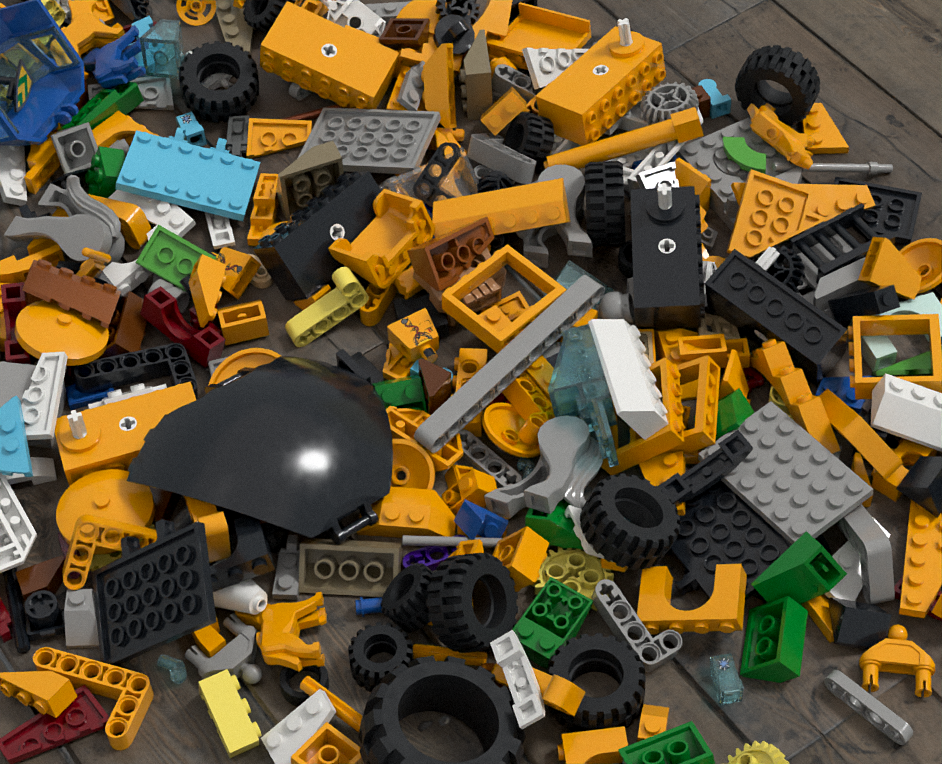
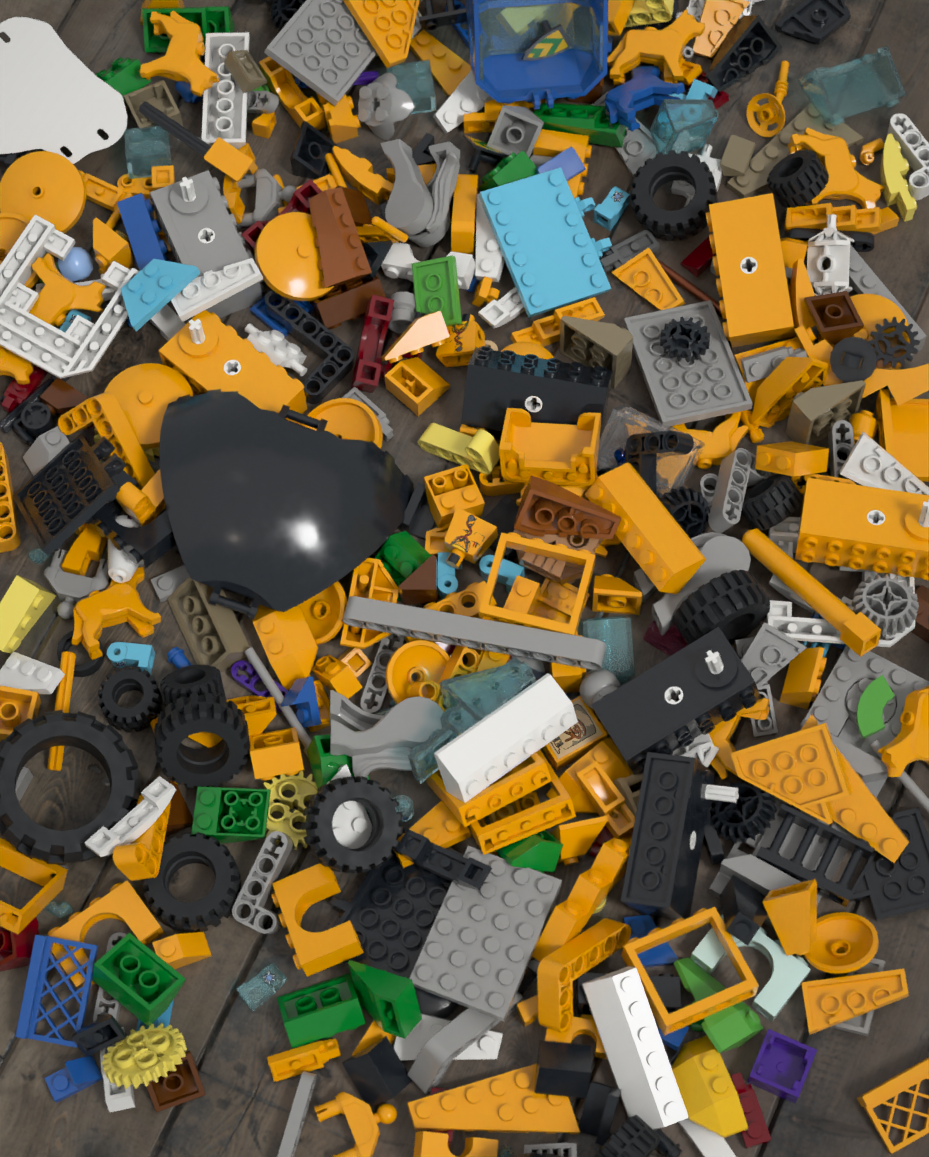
camera: 60 degrees right, 15 degrees up
(129, 128) = (567, 160): none -> slope
(195, 236) = (484, 292): none -> light orange tile
(212, 34) = (736, 156): none -> dark tan slope
(279, 97) = (699, 259): none -> dark red slope
(337, 640) = (131, 655): none -> medium azure leg
(351, 127) = (685, 339): none -> black gear
(365, 337) = (452, 490): none -> light orange slope
(454, 339) = (507, 572): none -> medium azure leg
(546, 261) = (615, 596): none -> light orange slope
(602, 260) = (668, 643): none -> clear pink slope
(812, 676) = (302, 1059): none -> light orange hinge

